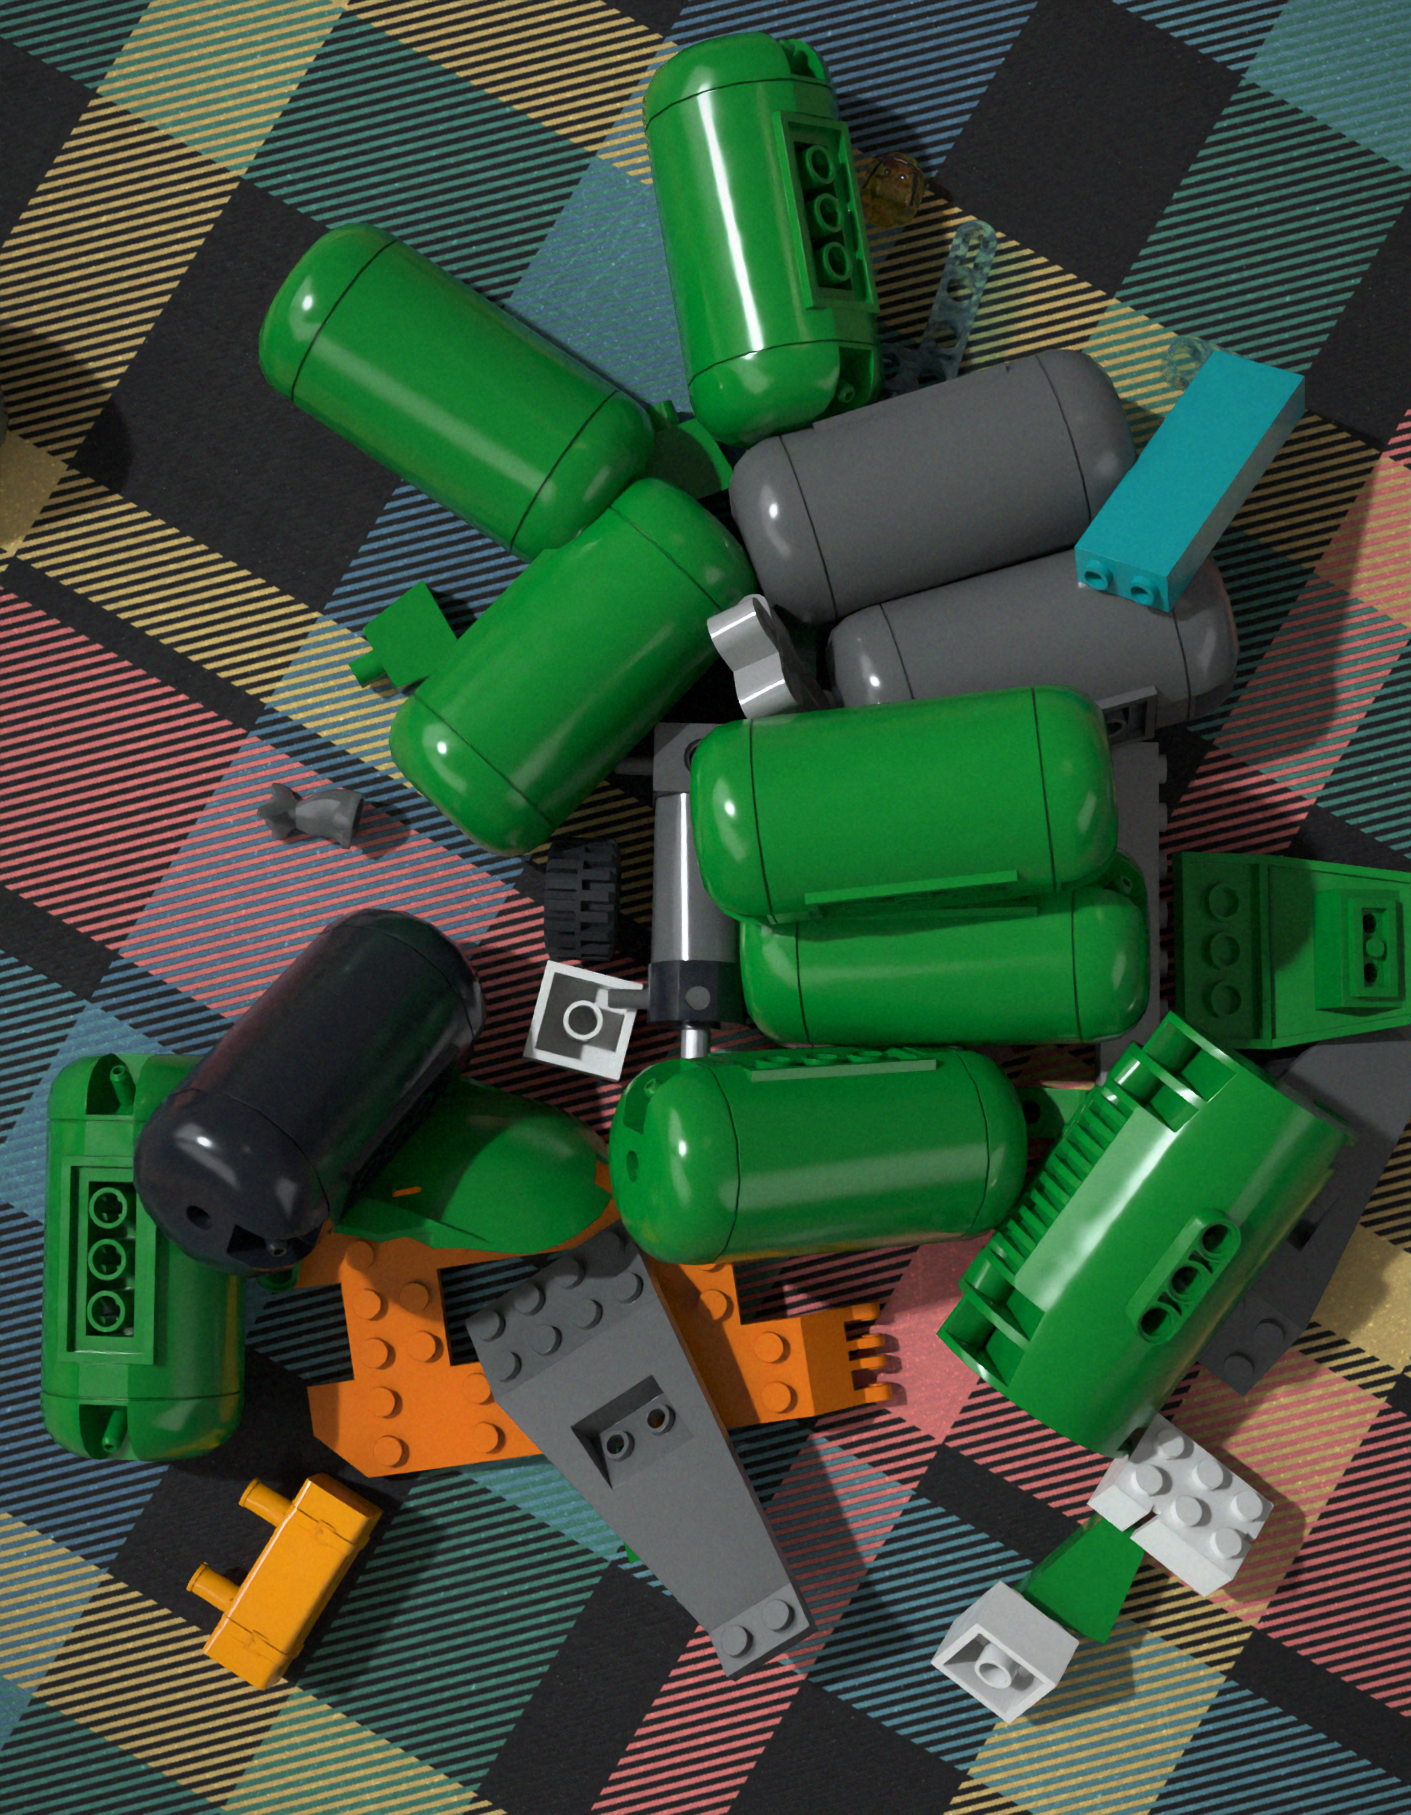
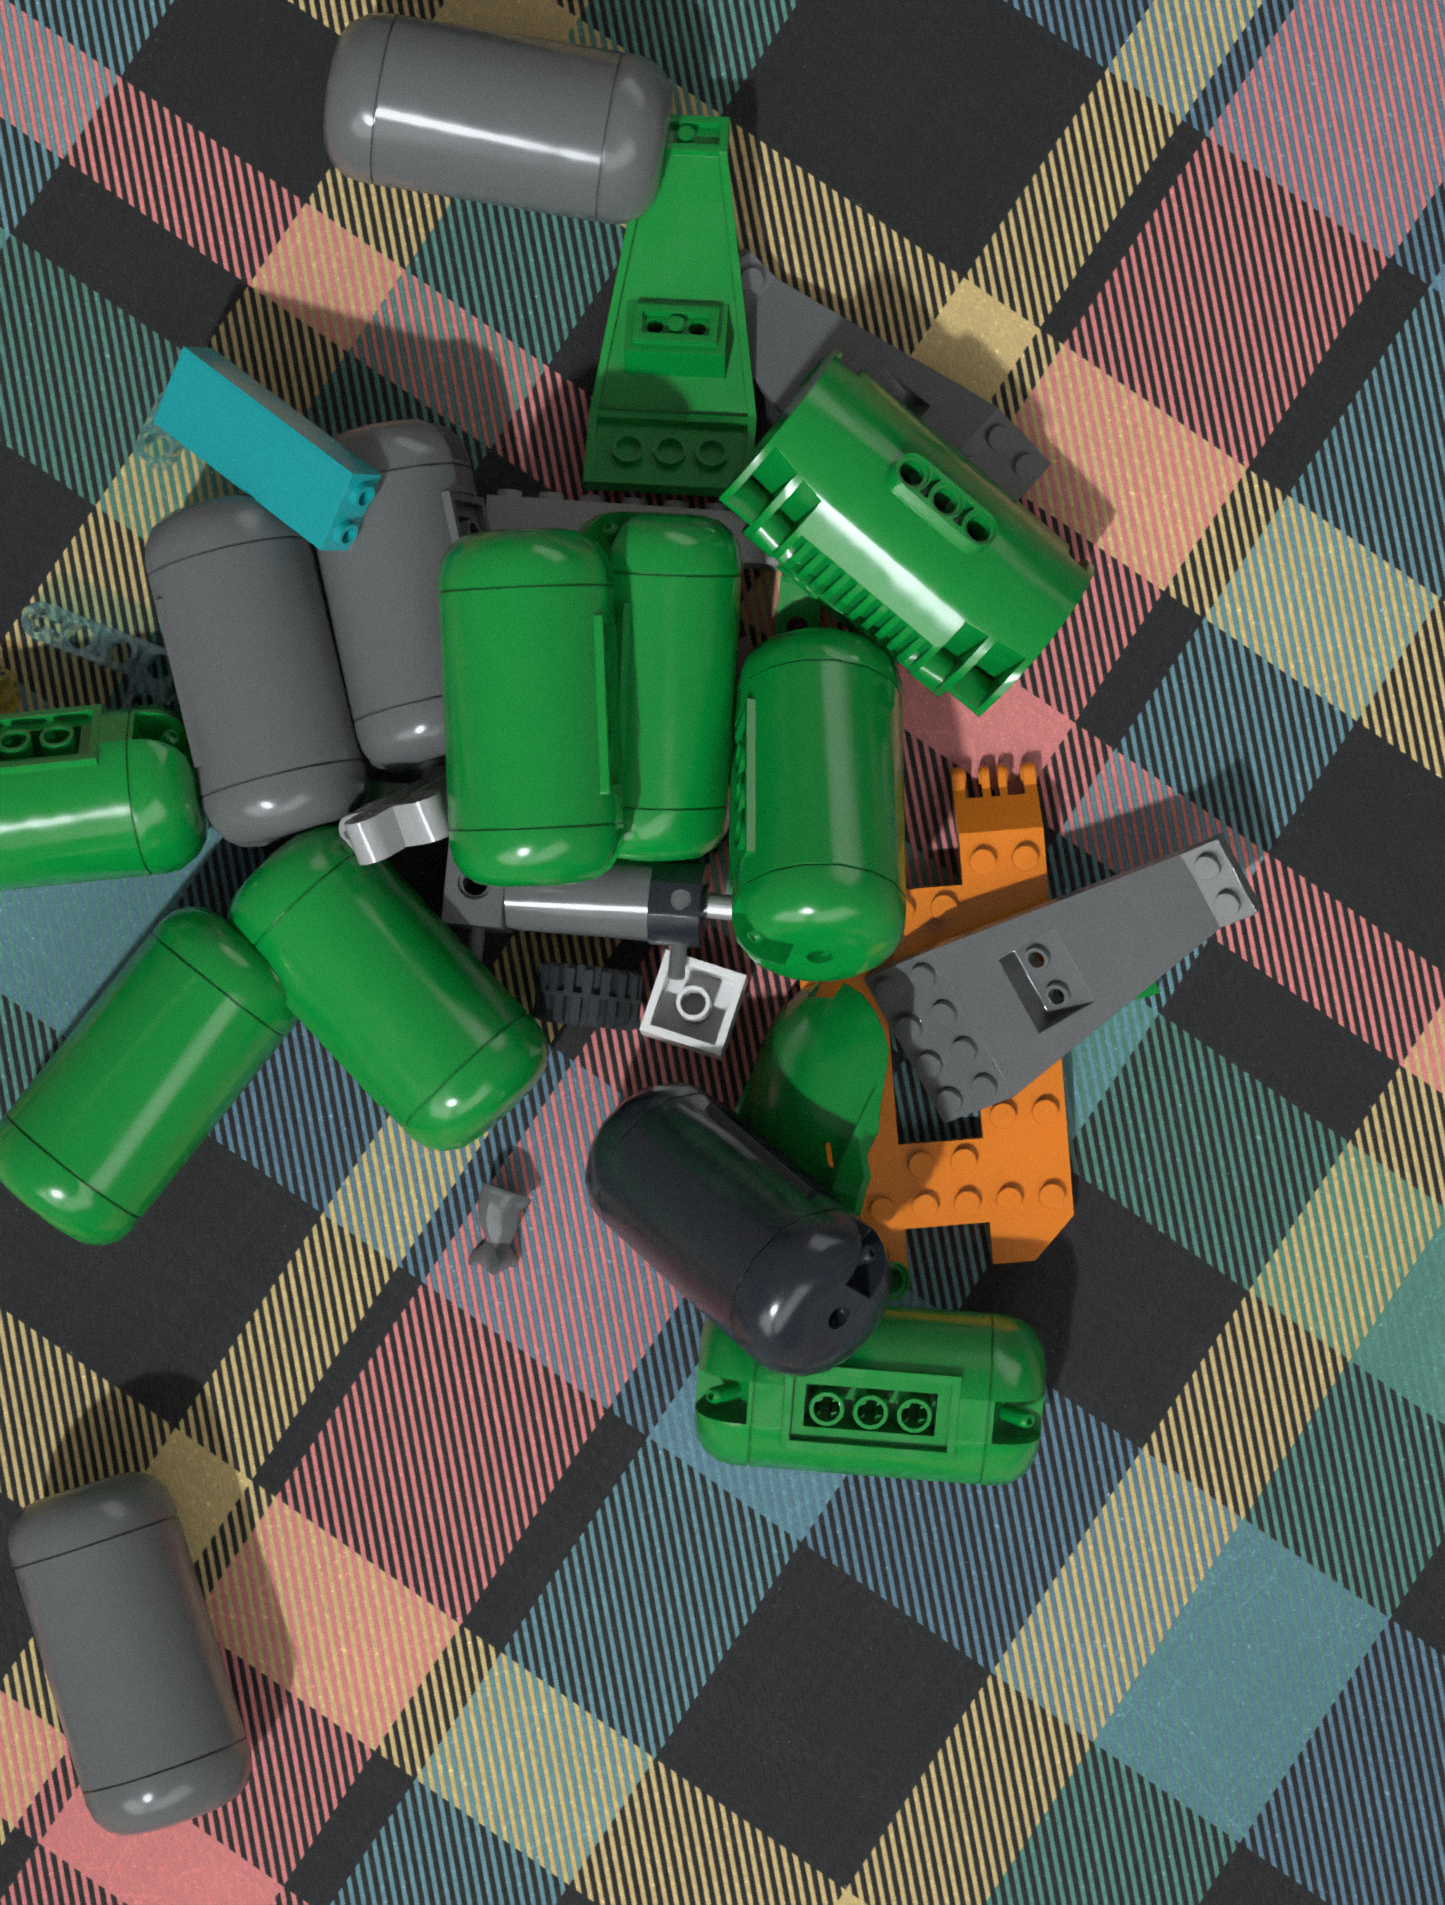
camera: 85 degrees left, 0 degrees up
(291, 1578) = (1154, 1283): light orange piece -> none
(405, 641) = (354, 1136): green torso -> none
(688, 456) = (209, 880): green torso -> none
(1005, 1652) = (1253, 679): white brick -> none
(1086, 1578) = (1192, 605): green slope -> none
(1200, 1505) = (1139, 505): white piece -> none

